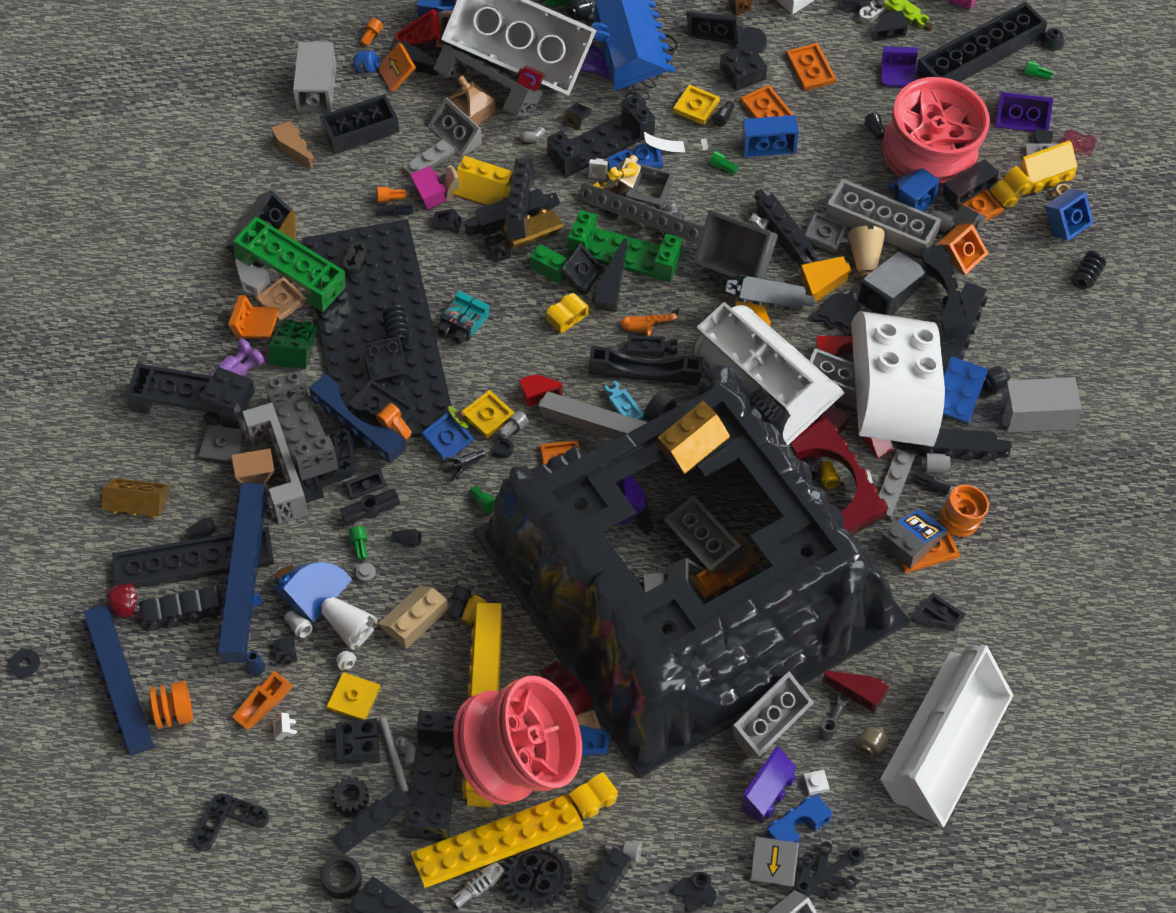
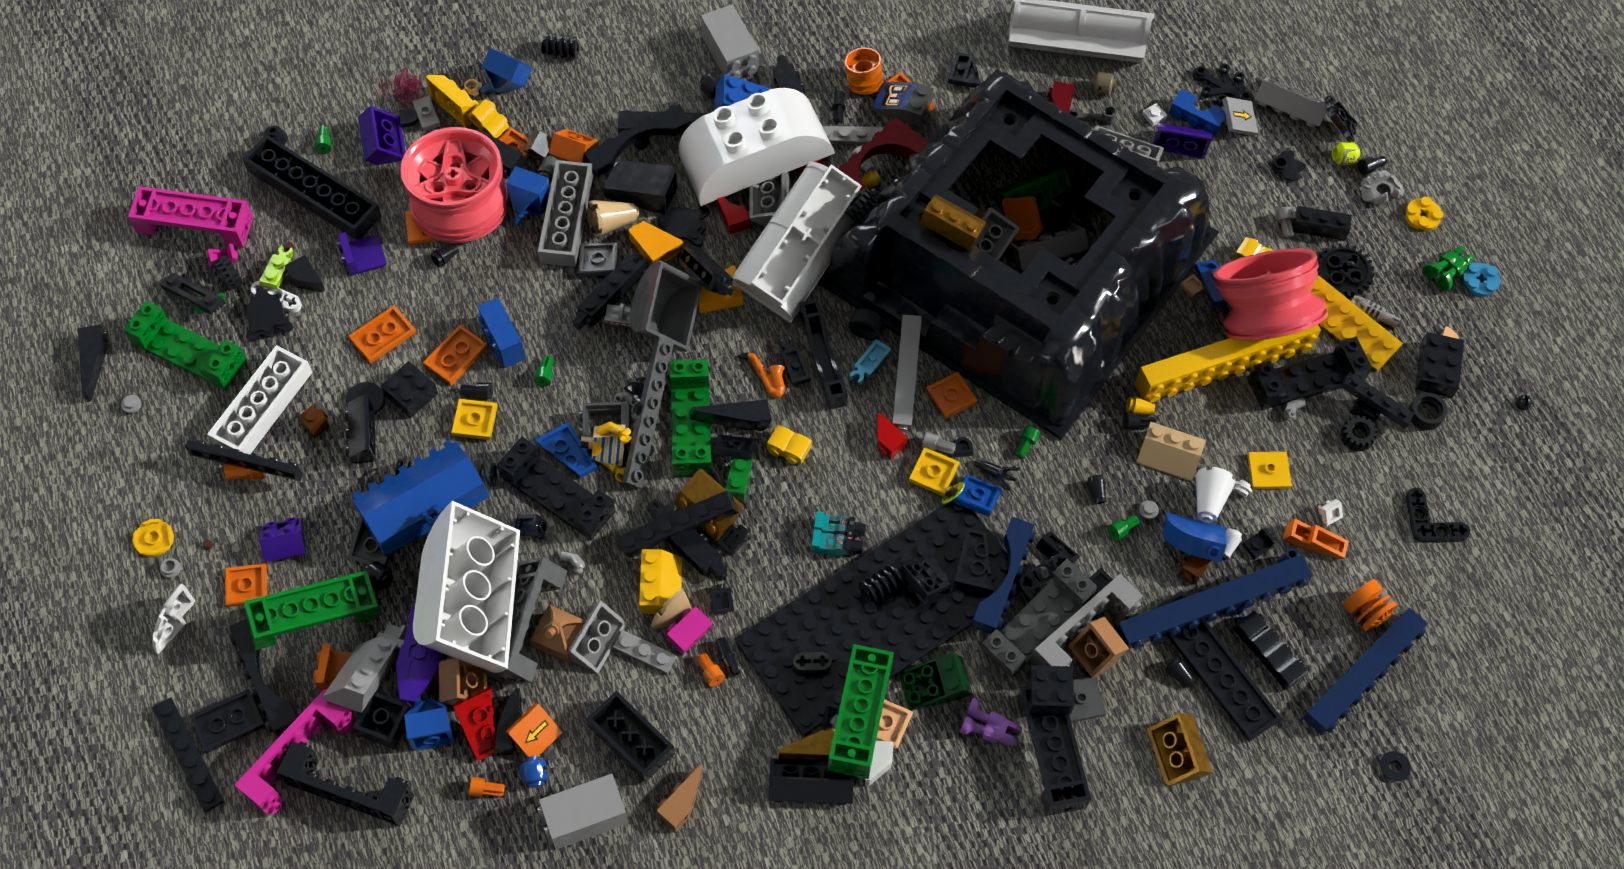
camera: 115 degrees left, 5 degrees up
(122, 600) = (1294, 700): dark red hat -> none
(252, 321) = (929, 730): orange bracket -> none
(354, 742) = (1312, 448): black hips -> none
(360, 511) = (1093, 539): black piece -> none
(390, 418) = (995, 536): orange piece -> none
(393, 755) = (1302, 418): light grey bar -> none
(530, 78) = (521, 564): dark red brick -> none
(569, 685) = (1172, 309): dark red slope -> none
(598, 169) = (596, 480): white tile -> none
(673, 146) = (536, 424): white sticker -> none
(936, 463) = (820, 107): light grey brick -> none

